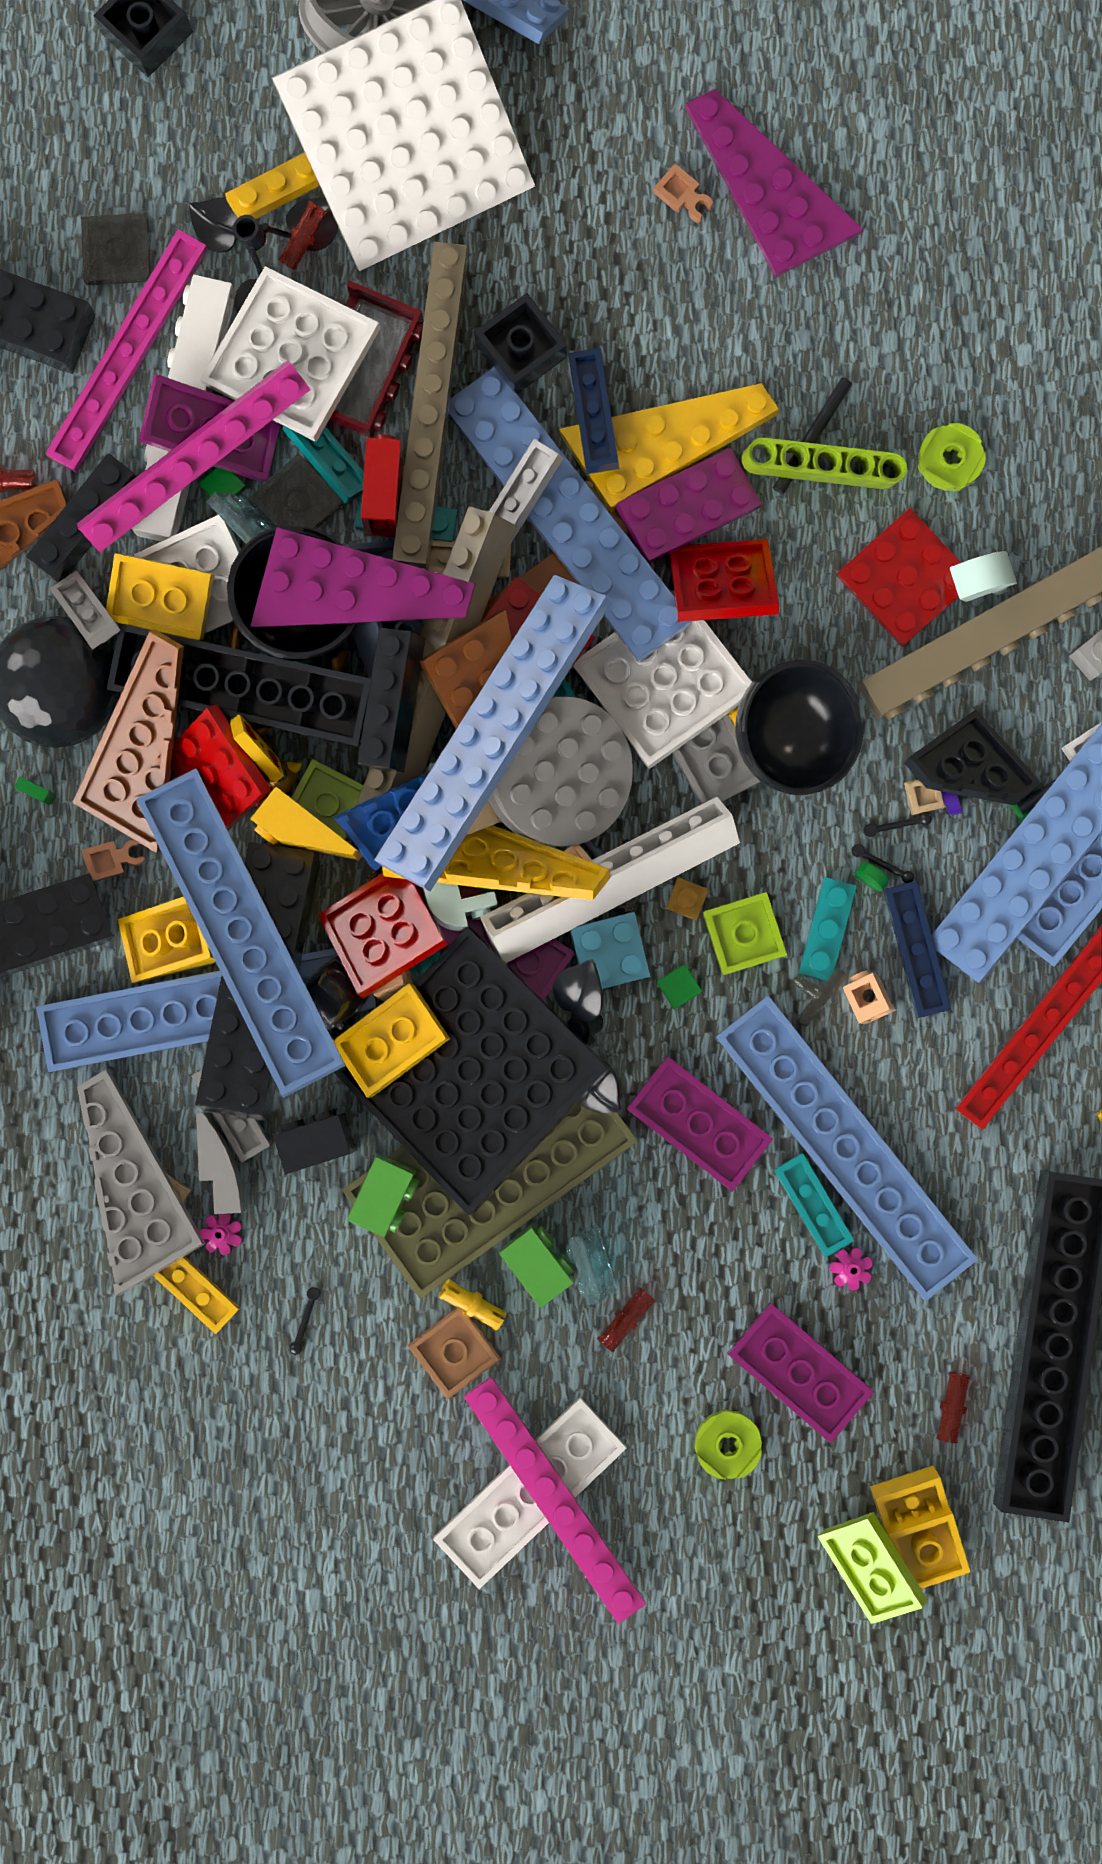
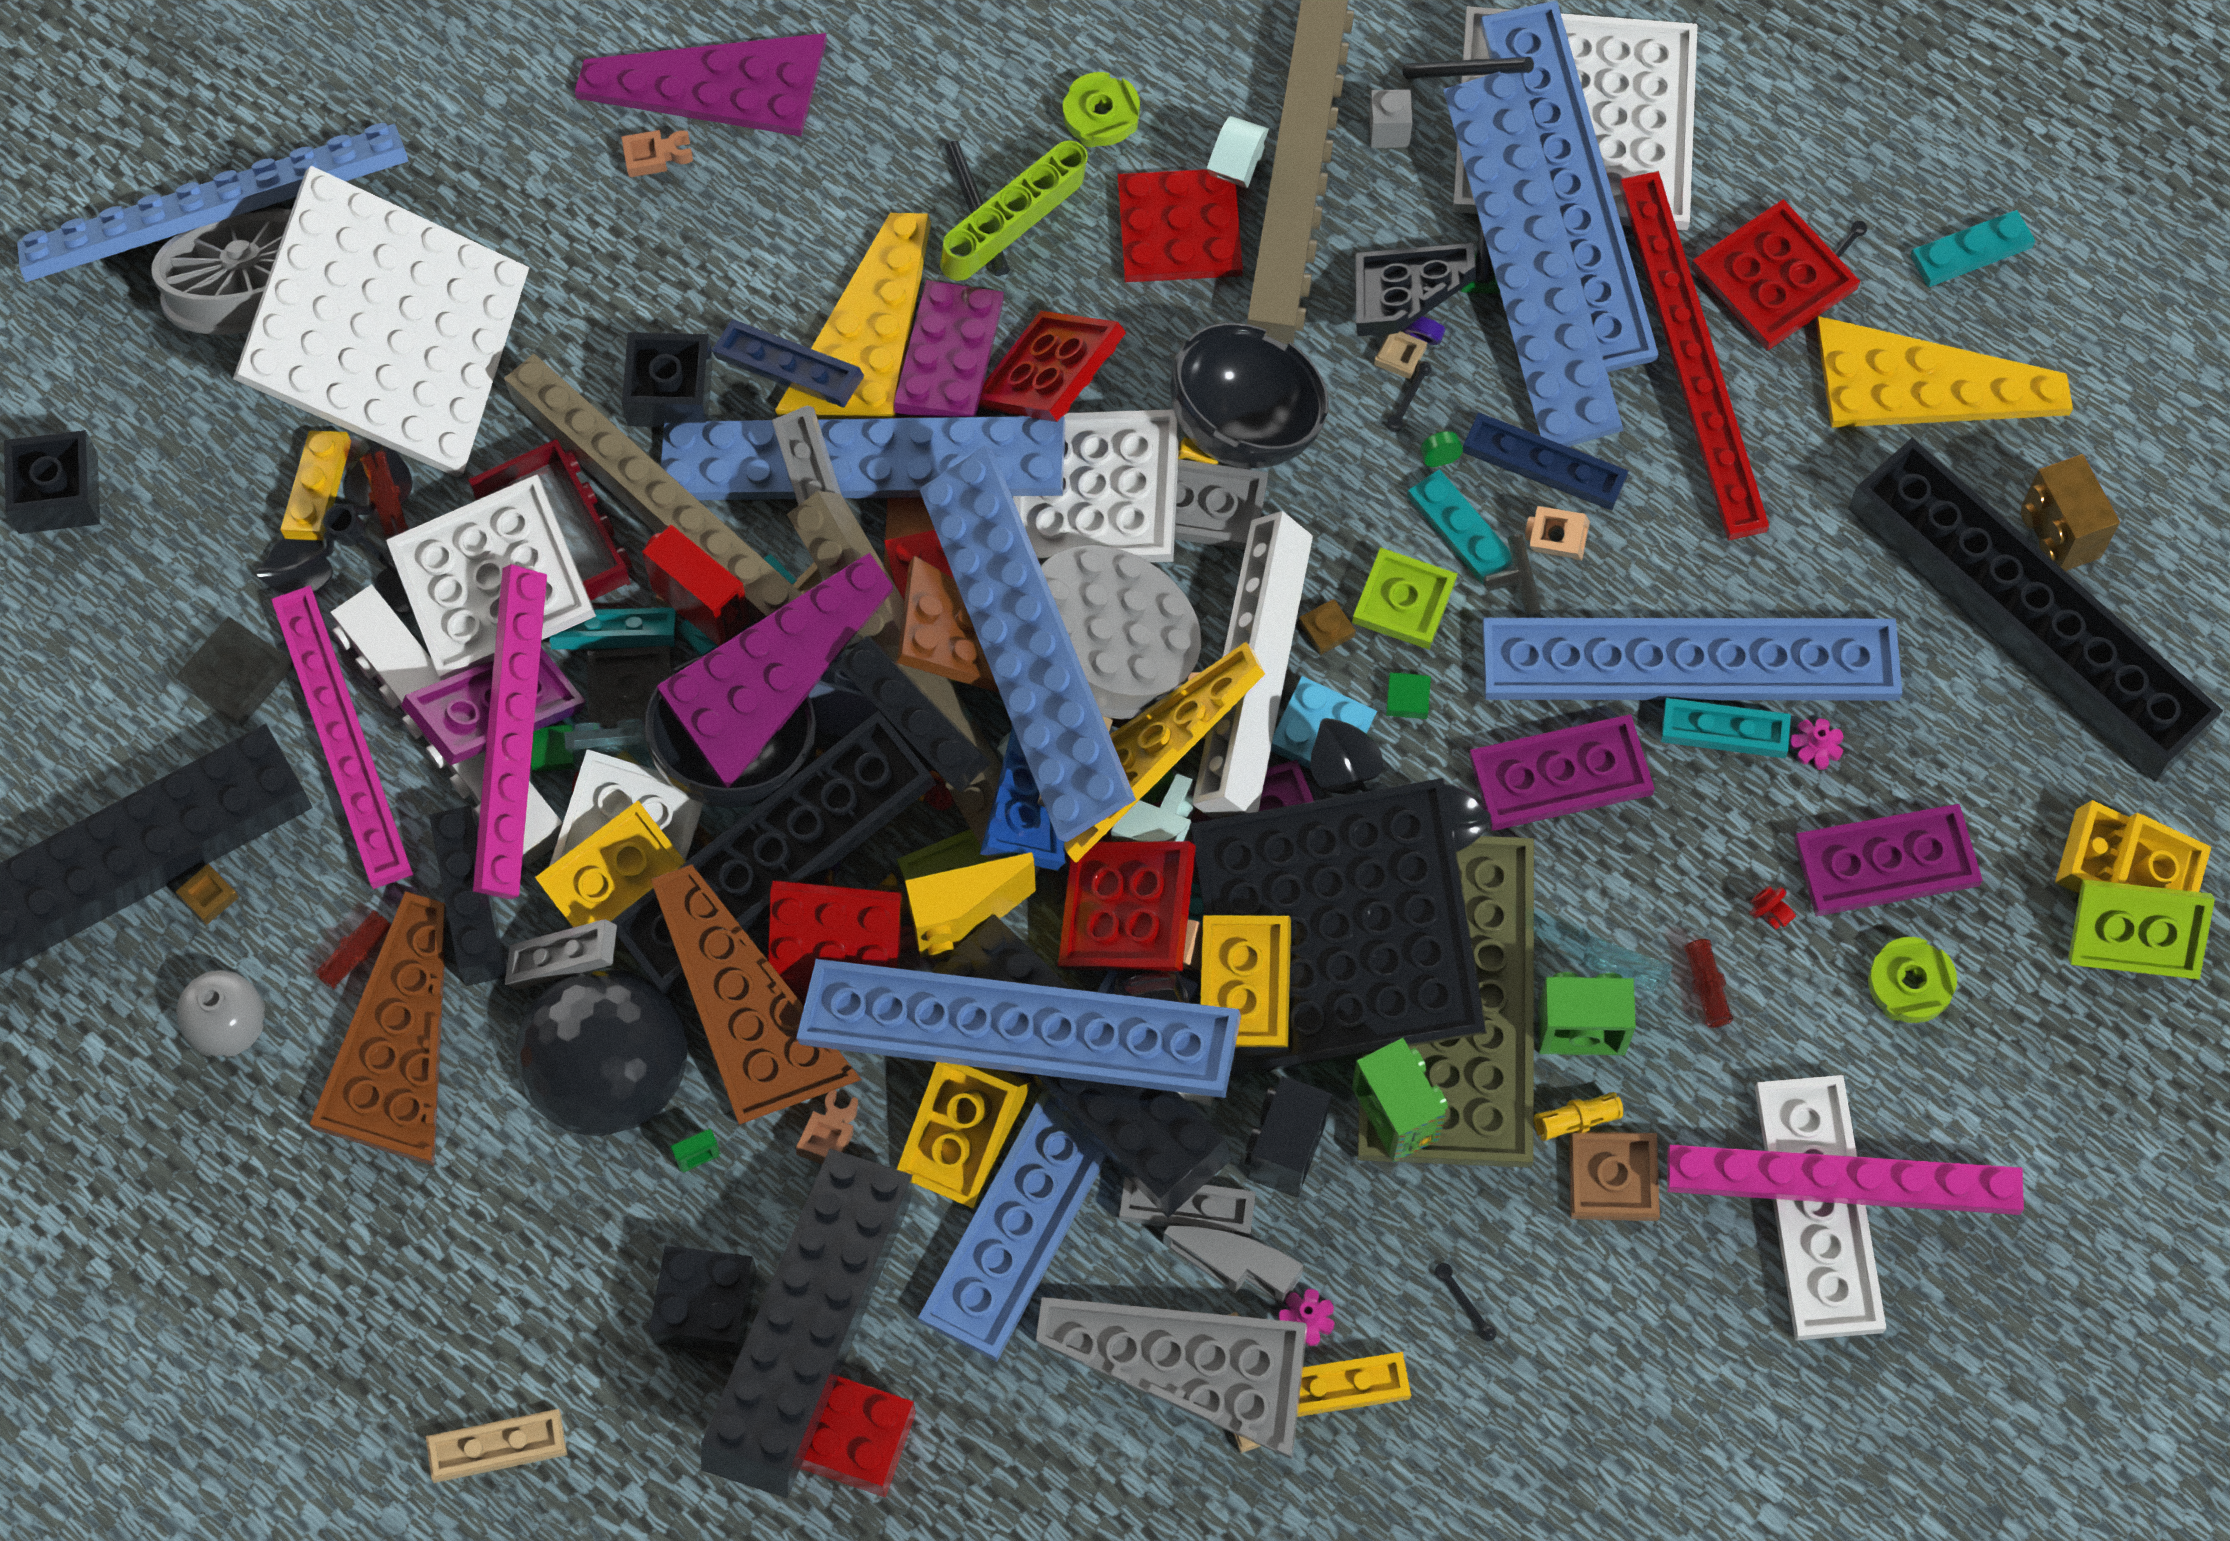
camera: 55 degrees left, 20 degrees down
(256, 748) = (839, 876): yellow tile -> none
(709, 1319) = (1774, 910): none -> red plate
(858, 850) = (1406, 446): black hinge -> none
(953, 1407) = (2029, 748): clear red pin -> none

